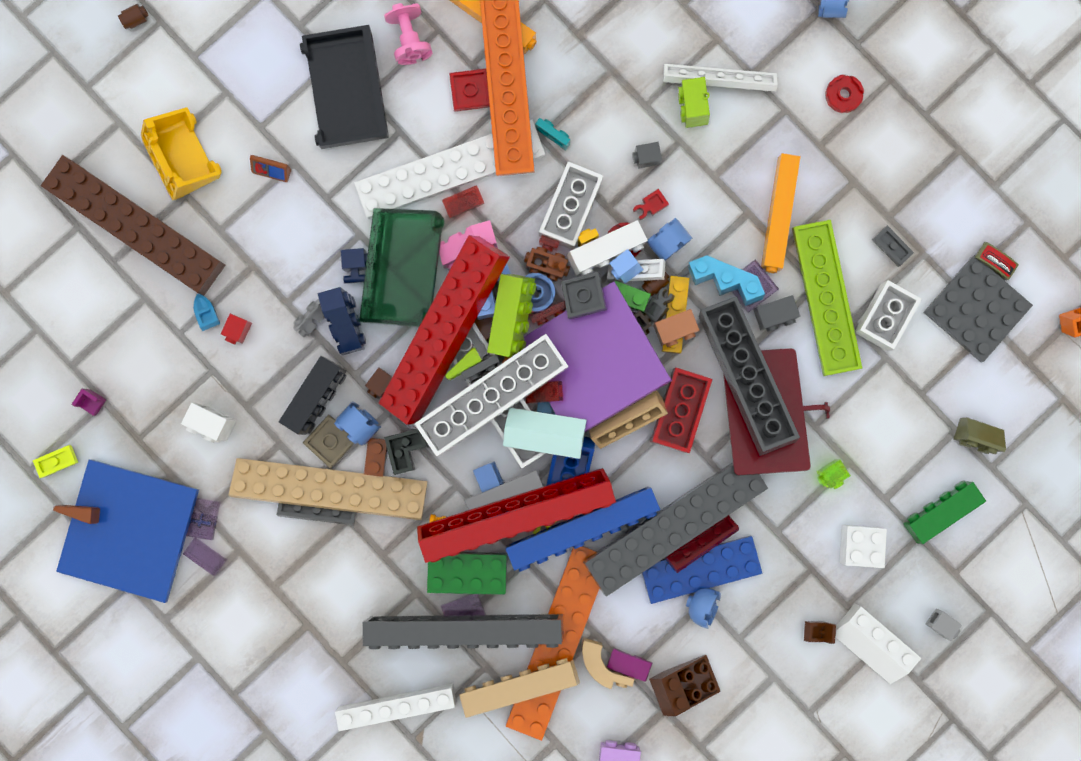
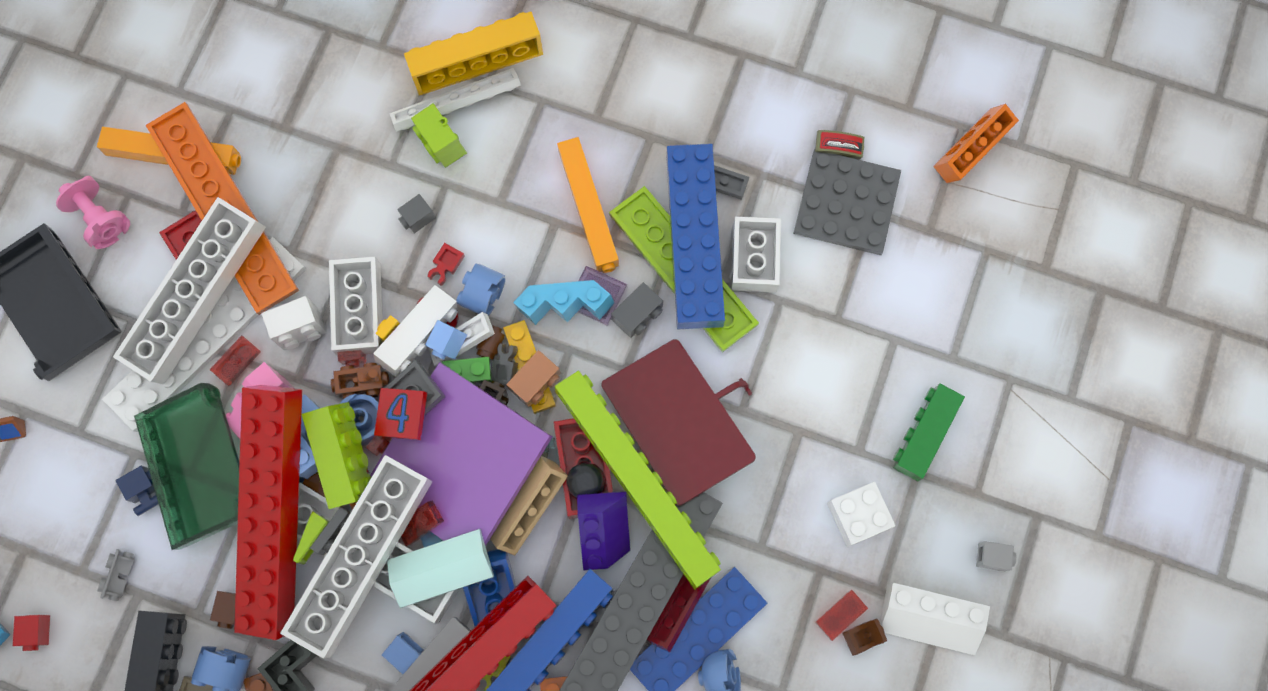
camera: 25 degrees left, 10 degrees down
(339, 311) = (152, 558): dark blue brick -> none
(457, 135) = (189, 292): none -> white brick
(519, 196) = (294, 323): none -> white brick
(547, 129) = (294, 239): teal plate -> none
(568, 306) = (400, 413): none -> red tile
(672, 463) = (603, 529): none -> dark purple slope
(678, 423) = (585, 479): none -> black hair
(716, 441) = (637, 480): none -> lime brick
(748, 376) = (639, 392): dark grey brick -> none
(754, 48) = (474, 53): none -> yellow brick
(810, 608) = (841, 615): none -> clear red plate
(833, 474) = (787, 452): clear neon green brick -> none
(841, 104) = (592, 66): red tile -> none
(850, 279) = (695, 237): none -> blue brick
(980, 435) = (921, 331): olive slope -> none

